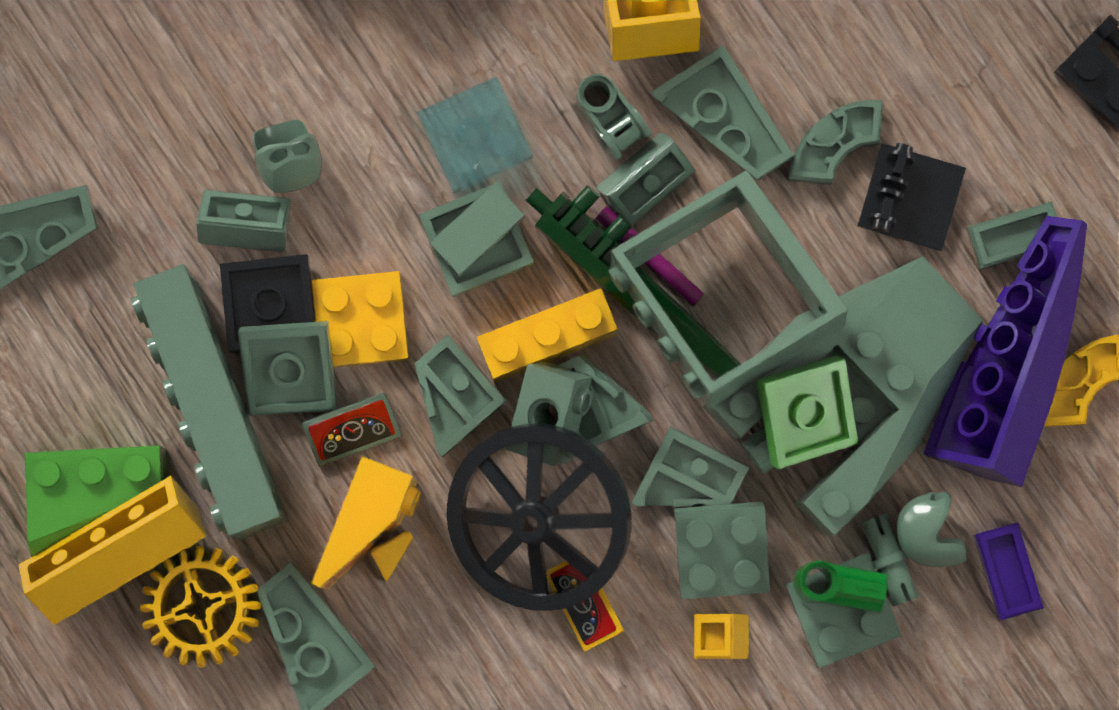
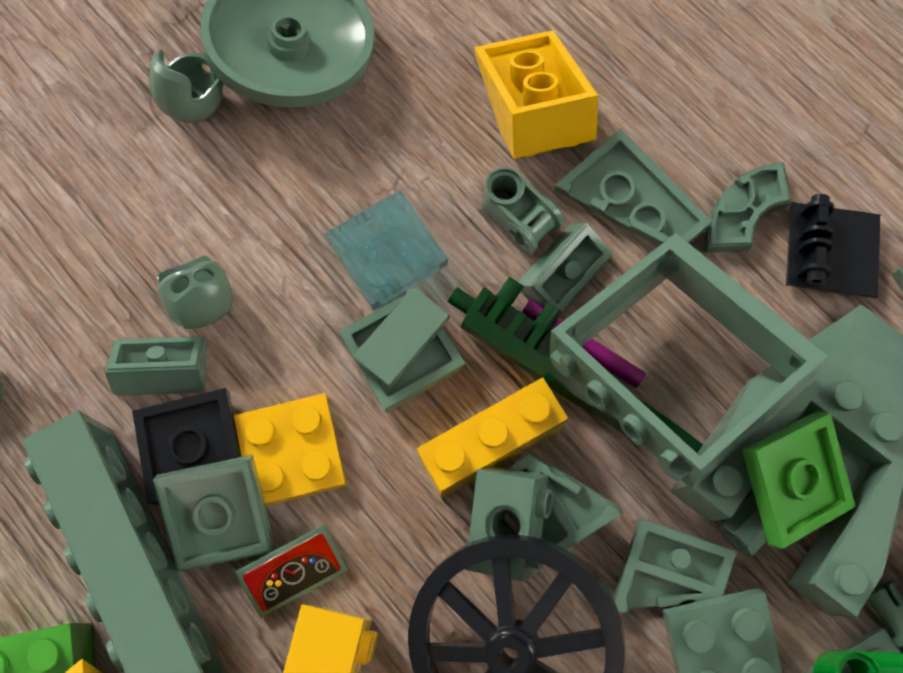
camera: 10 degrees left, 10 degrees down
(454, 394) = (400, 516): sand green wing -> none

